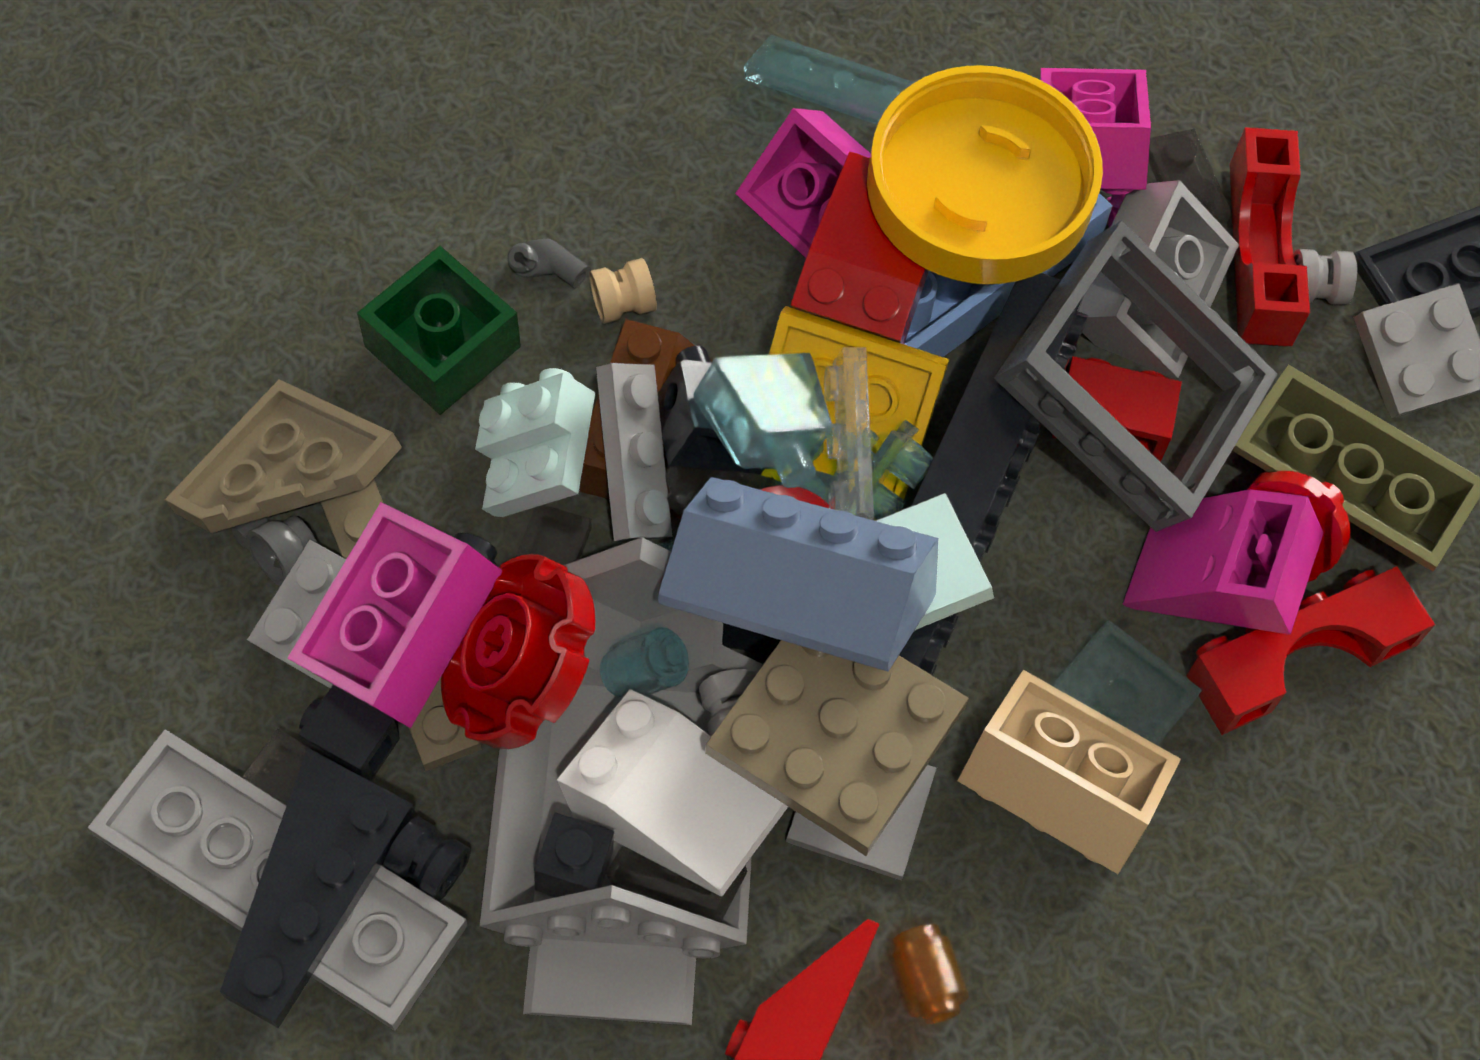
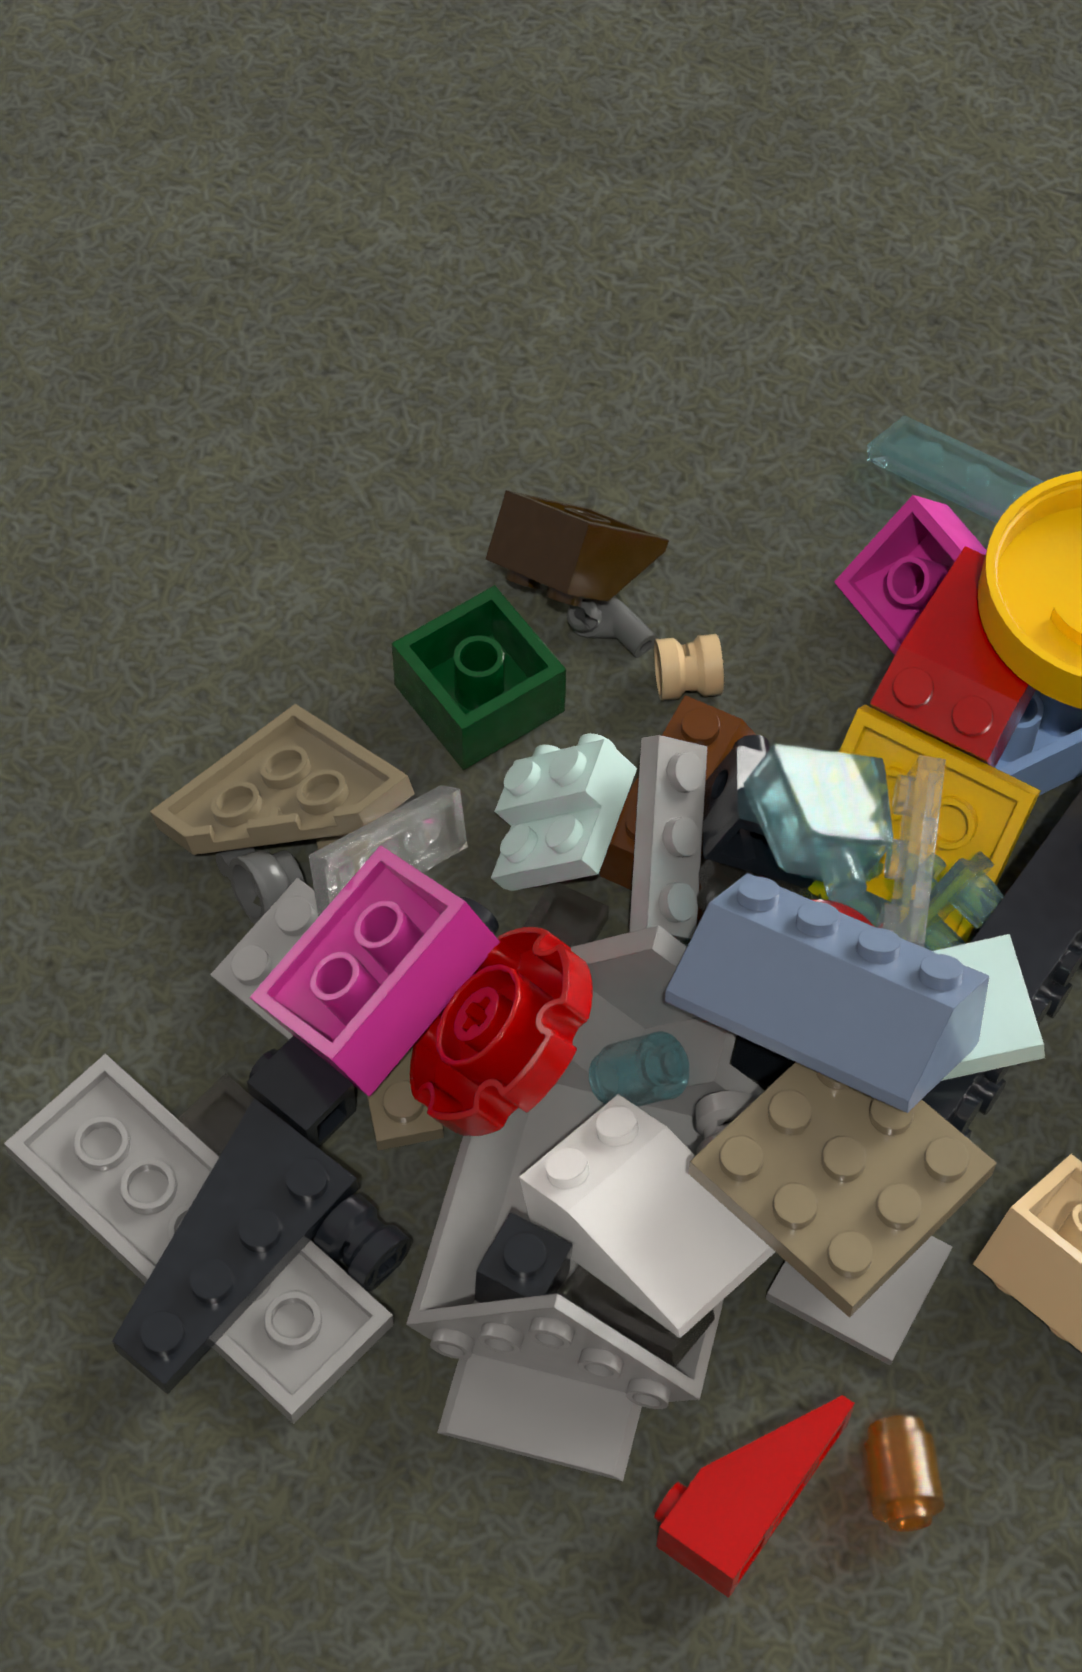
camera: 15 degrees right, 5 degrees down
(406, 483) = (417, 832): none -> clear plate
(499, 200) = (569, 548): none -> dark brown slope

